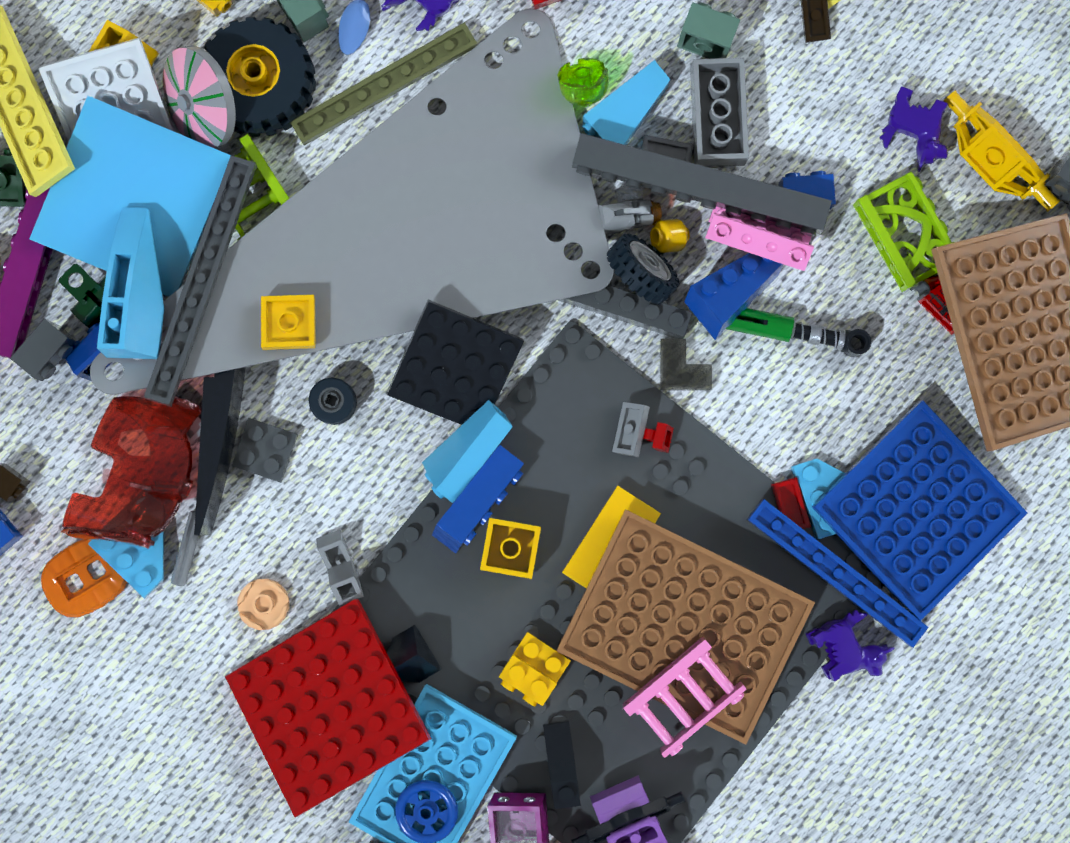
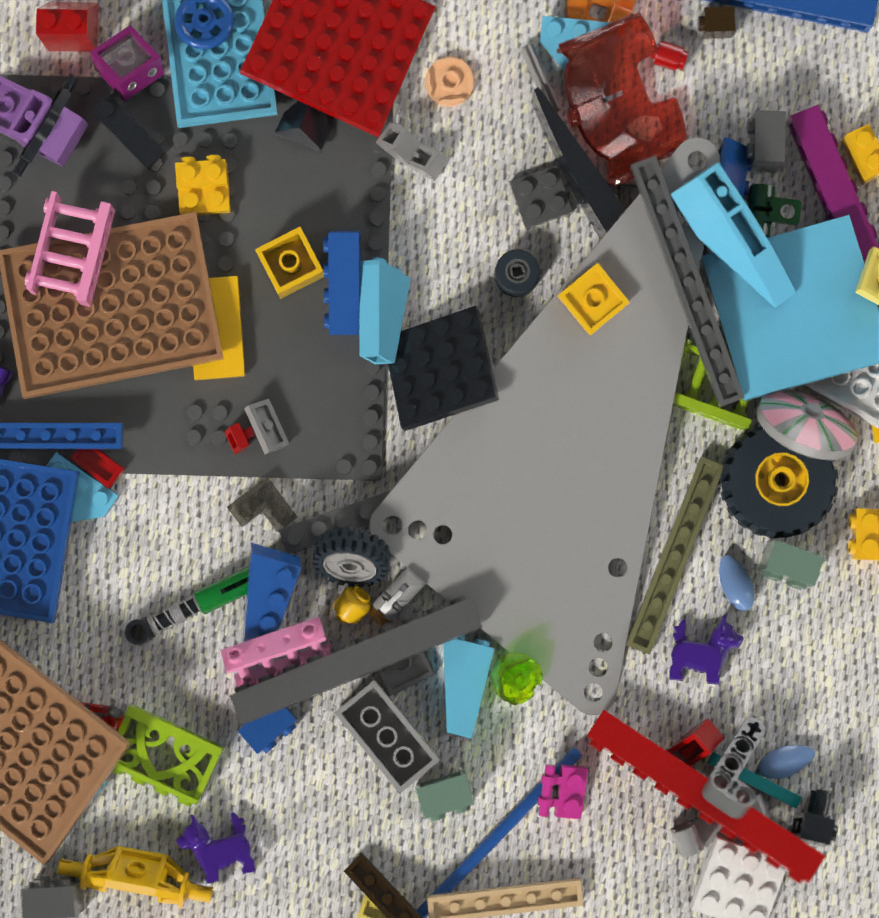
camera: 145 degrees right, 0 degrees up
(66, 483) = (670, 56): none -> red brick

